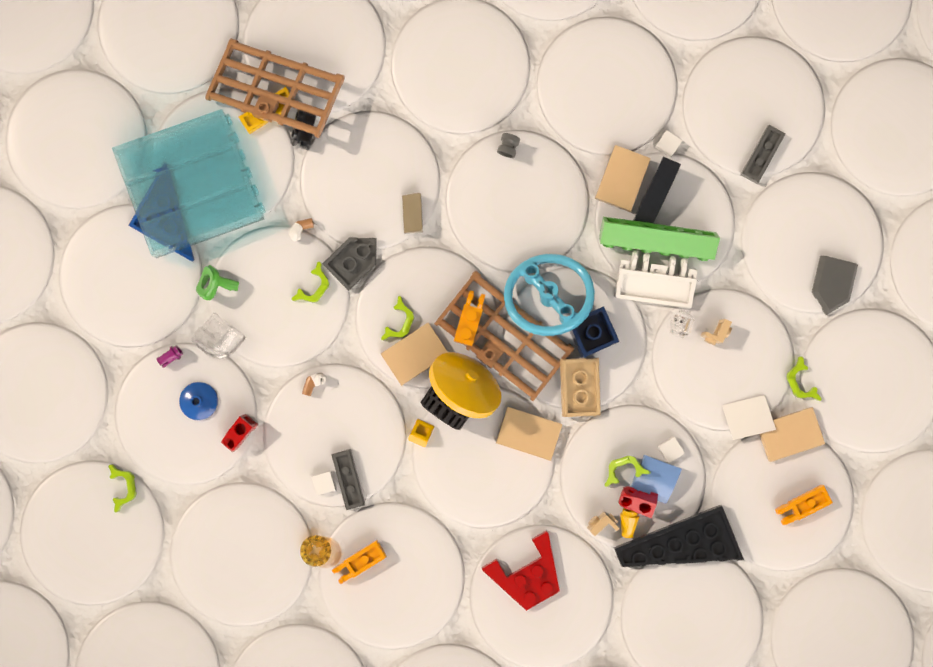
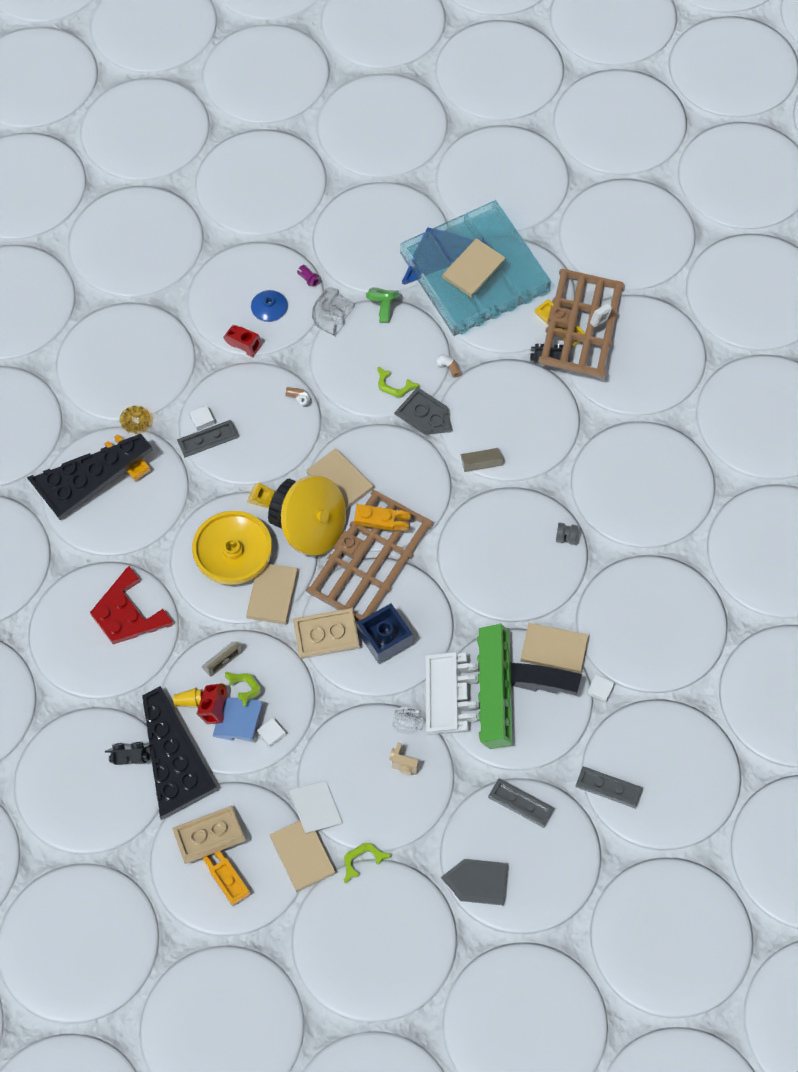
camera: 85 degrees right, 25 degrees down
(129, 477) = (181, 263): lime helmet -> none
(195, 184) = (473, 268): none -> tan tile
(275, 65) = (600, 315): none -> white tile
(379, 610) = (84, 476): none -> black wing
(407, 324) = (357, 454): lime helmet -> none
(480, 467) = (232, 547): none -> yellow dish
(546, 290) = (417, 584): medium azure piece -> none
(590, 488) = (222, 658): none -> dark tan slope
(596, 524) = (186, 668): tan bracket -> none
(676, 583) = (136, 751): none -> black hinge
(765, 516) = (208, 834): none -> tan tile
(767, 233) = (521, 803): none -> dark grey tile

